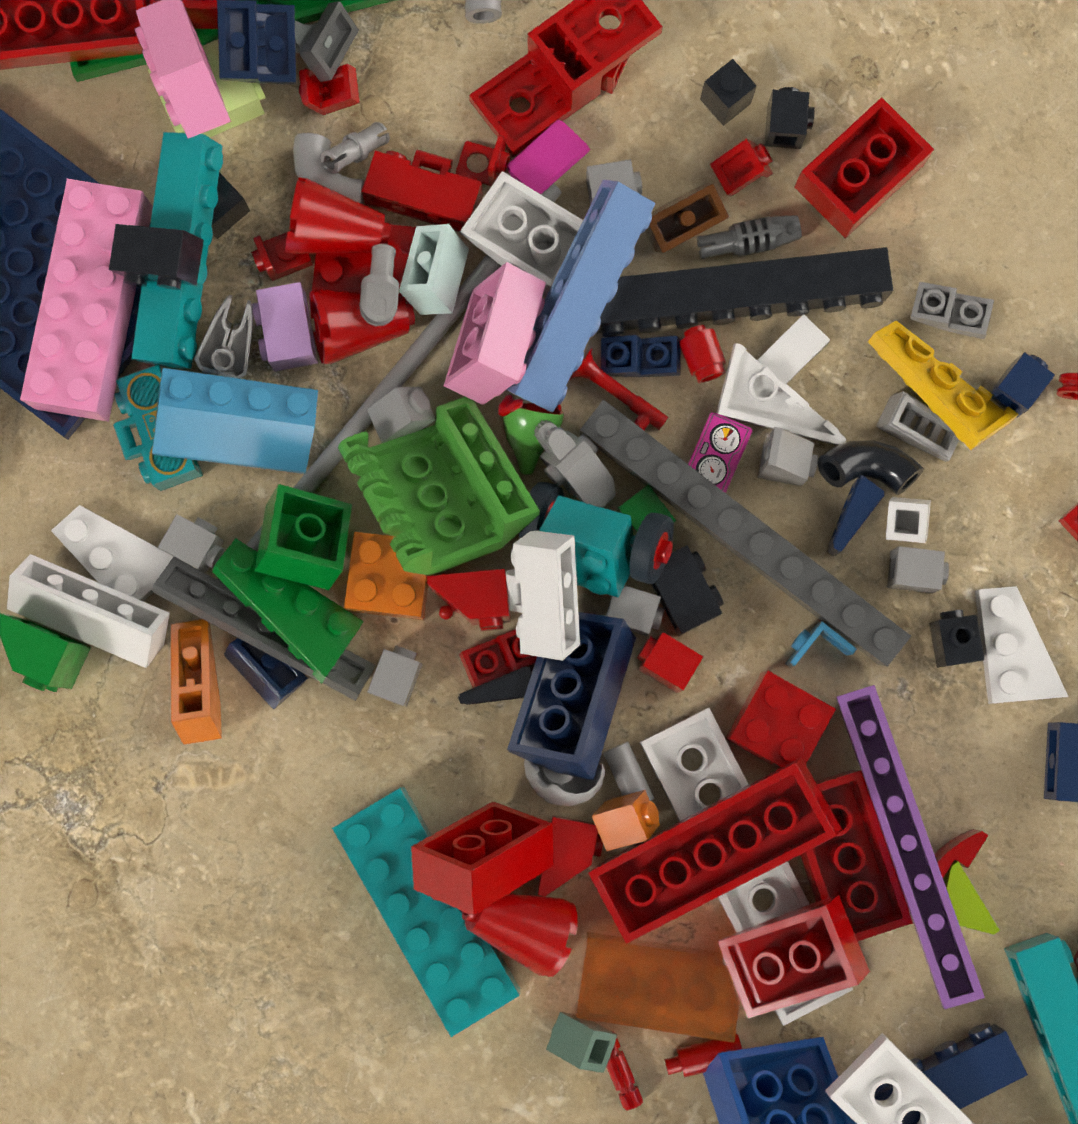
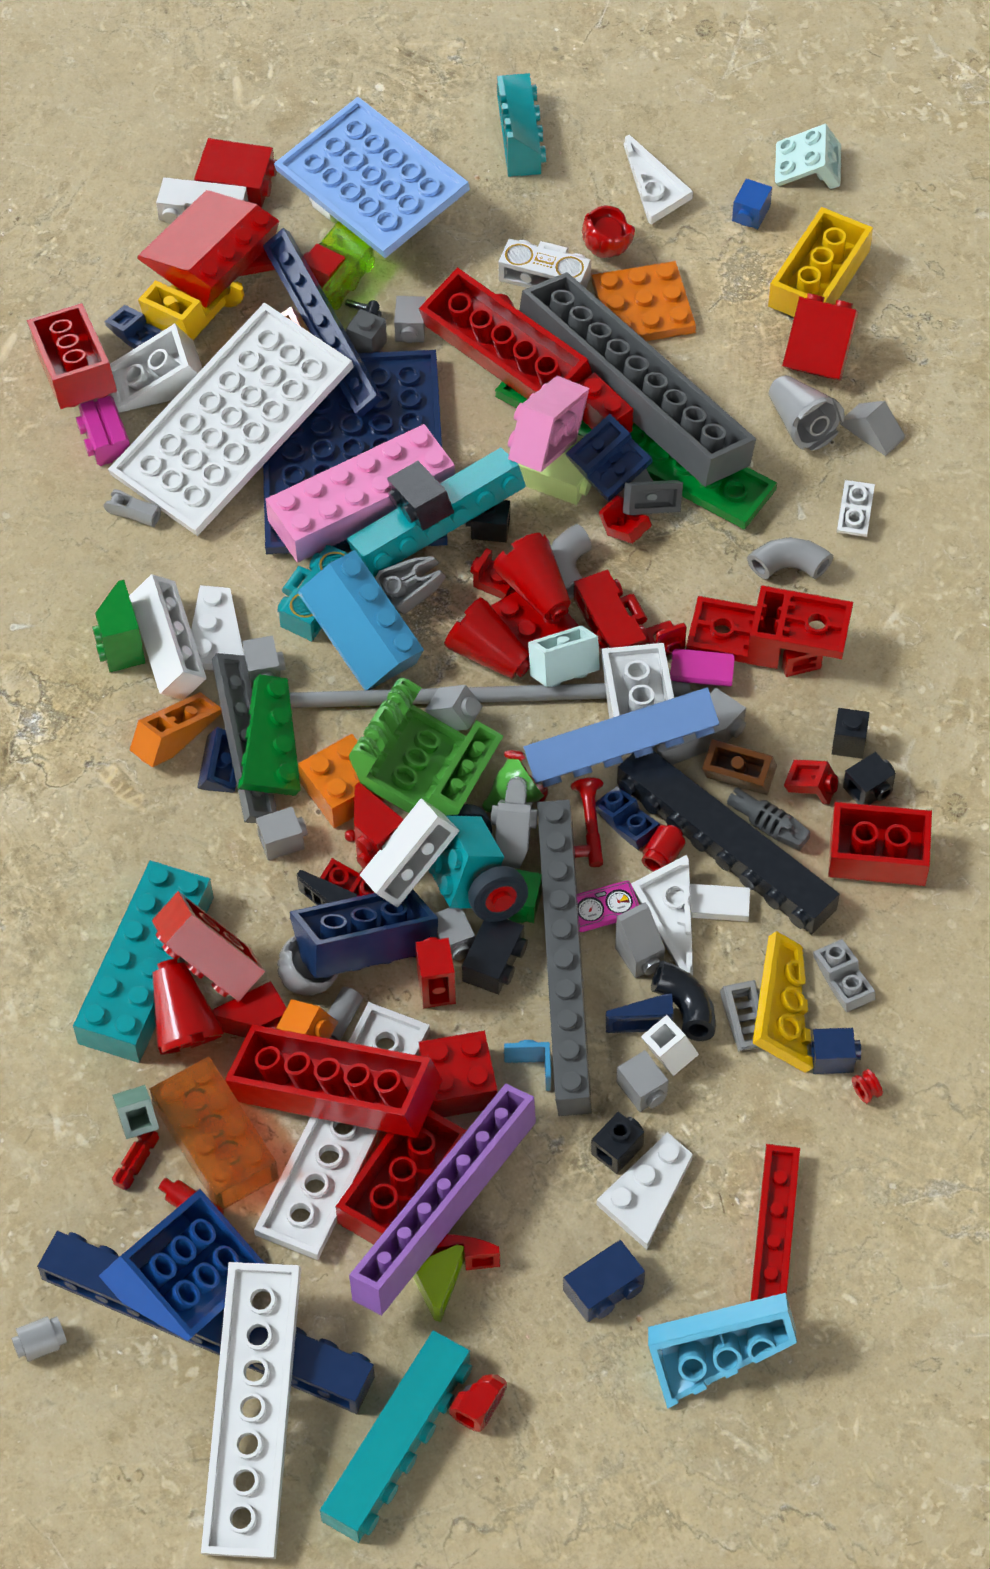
camera: 50 degrees right, 25 degrees down
(285, 327) = (445, 608): lavender brick -> none
(303, 537) = (321, 708): green brick -> none
(355, 147) = (600, 560): light grey pin -> none
(380, 288) = (519, 630): light grey arm -> none
(496, 334) = (552, 712): bright pink brick -> none
(794, 957) = (306, 1175): red slope -> none

